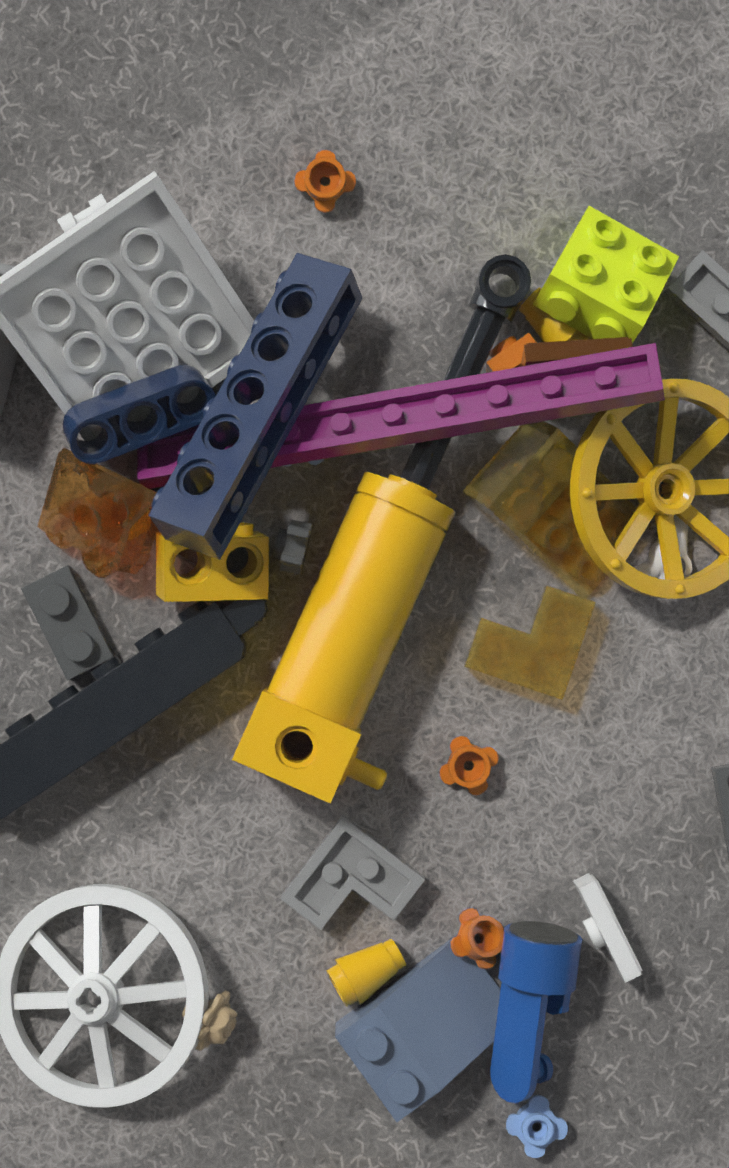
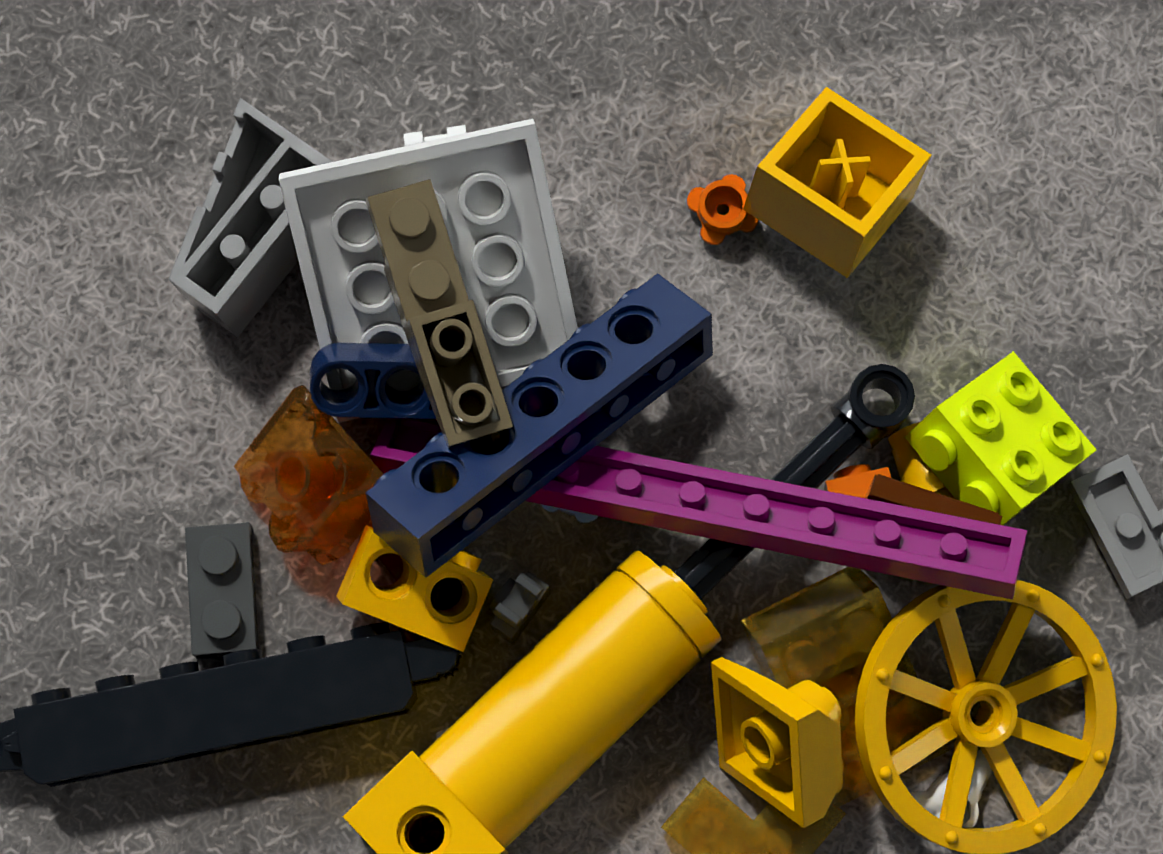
camera: 30 degrees right, 10 degrees down
(144, 354) = (437, 314): none -> dark tan slope
(404, 125) = (836, 181): none -> yellow brick
(528, 570) = (779, 739): none -> yellow slope

